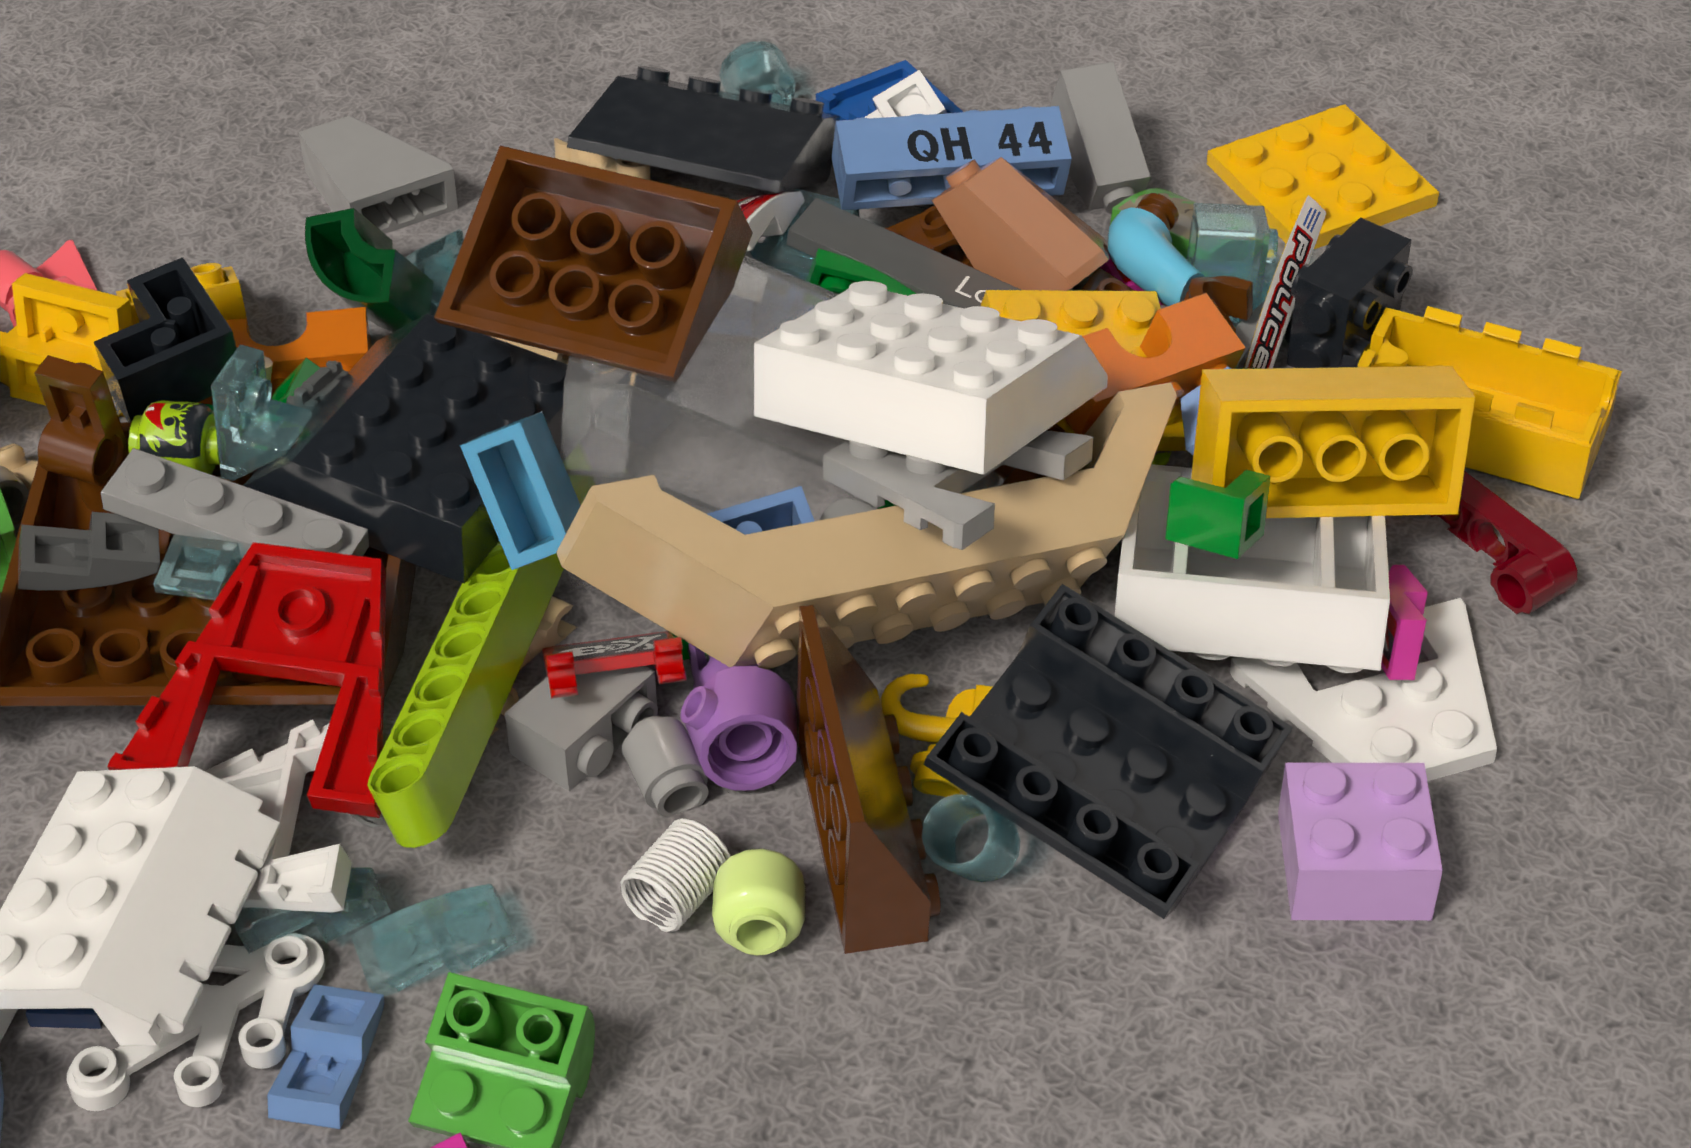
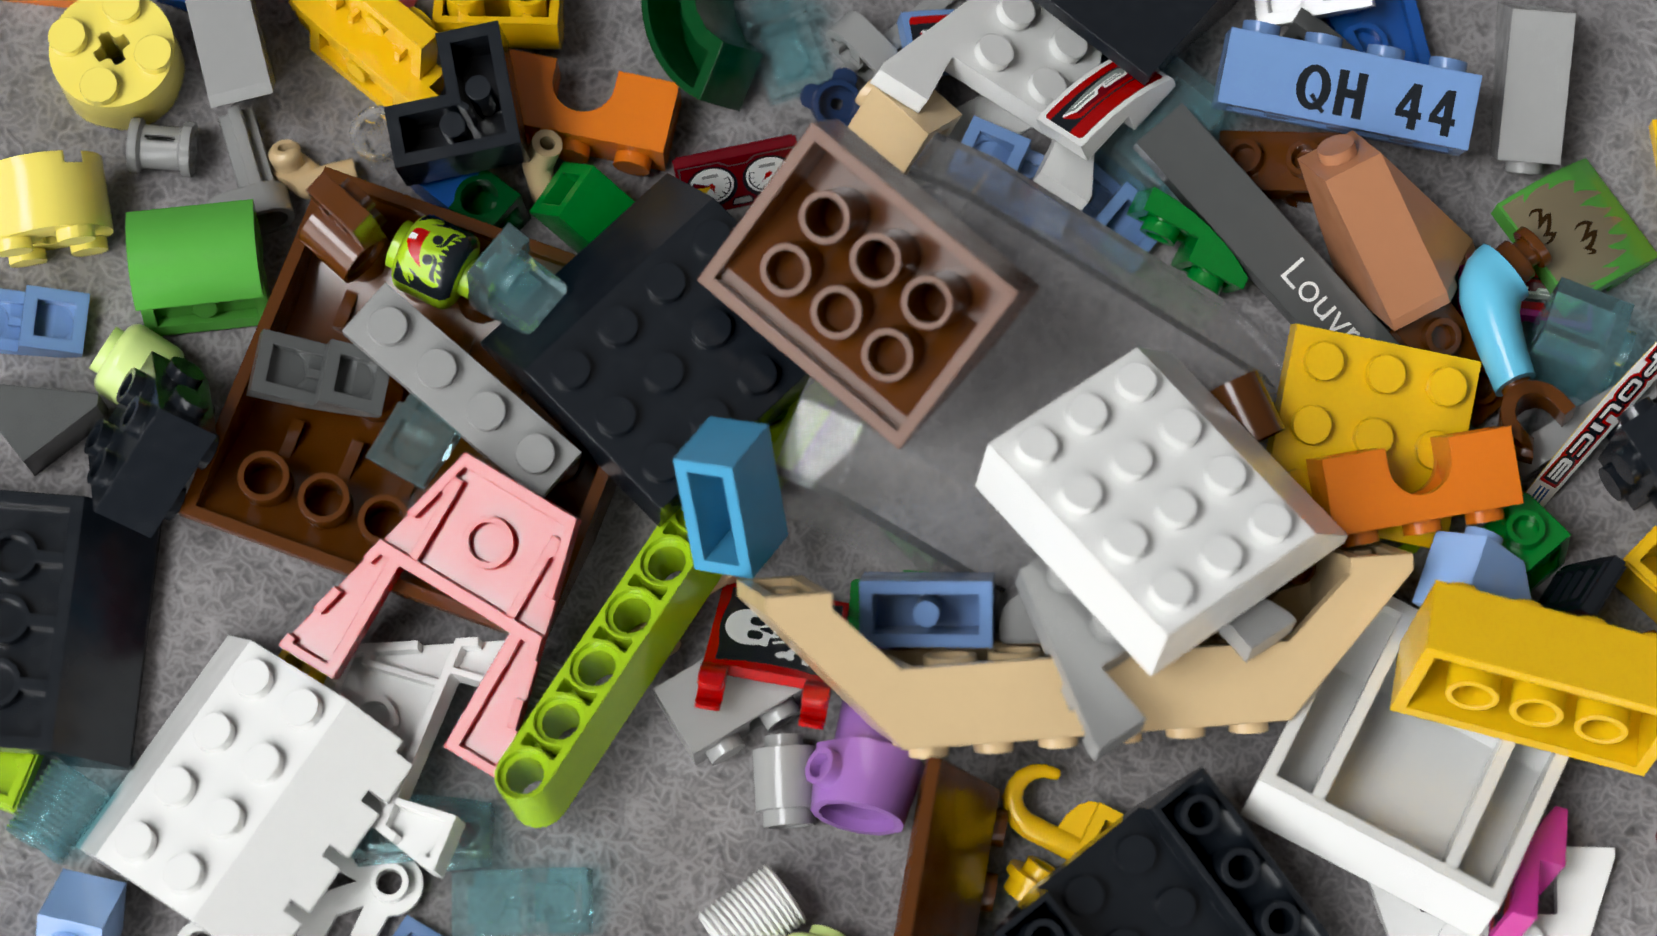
camera: 20 degrees right, 30 degrees up
(317, 386) = (593, 217): dark grey piece -> none
(1218, 517) = (1385, 739): green panel -> none

